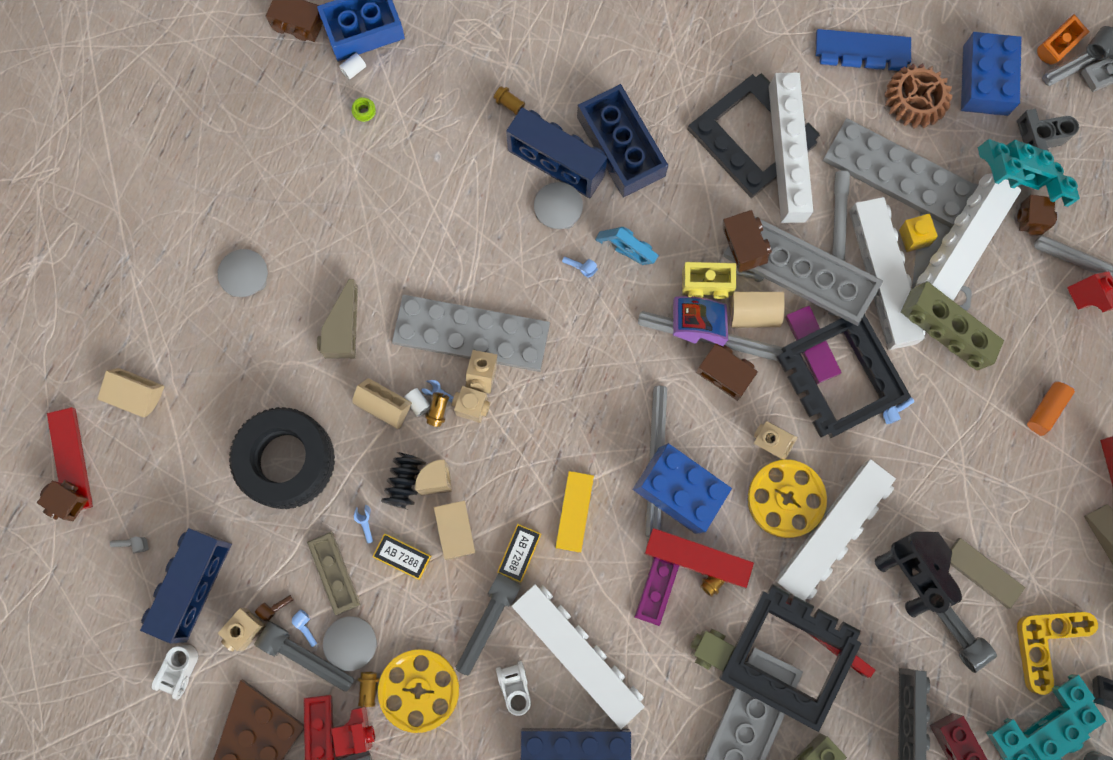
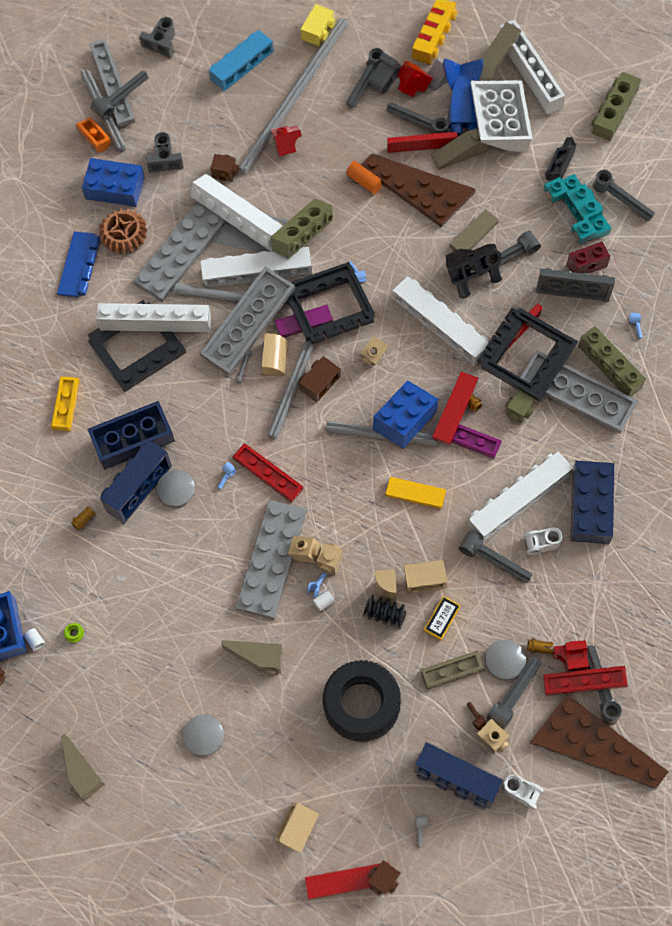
camera: 80 degrees left, 10 degrees down
(194, 137) = (80, 773): none -> dark tan slope
(299, 621) = (486, 695): light blue hand -> none
(363, 520) = (413, 644): light blue hand -> none
(381, 403) = (323, 624): tan brick -> none
(410, 703) = (549, 605): yellow wedge -> none
(437, 409) = (332, 585): pearl gold pin -> none
(519, 553) = (444, 533): tile -> none
(588, 317) = (268, 472): none -> red tile
(628, 245) = (215, 437): dark azure wing -> none
(663, 60) = (65, 403): none -> yellow tile
(699, 319) = (279, 392): slope -> none
(708, 279) = (249, 383): light yellow brick -> none
(746, 240) = (223, 353): reddish brown brick -> none
(799, 494) = (416, 357): yellow wedge -> none
(918, 232) = (229, 243): yellow brick -> none
(1029, 167) = (191, 165): teal bracket -> none
(1042, 500) = (426, 192): none -> reddish brown wing
(1043, 633) = (516, 203): yellow beam -> none

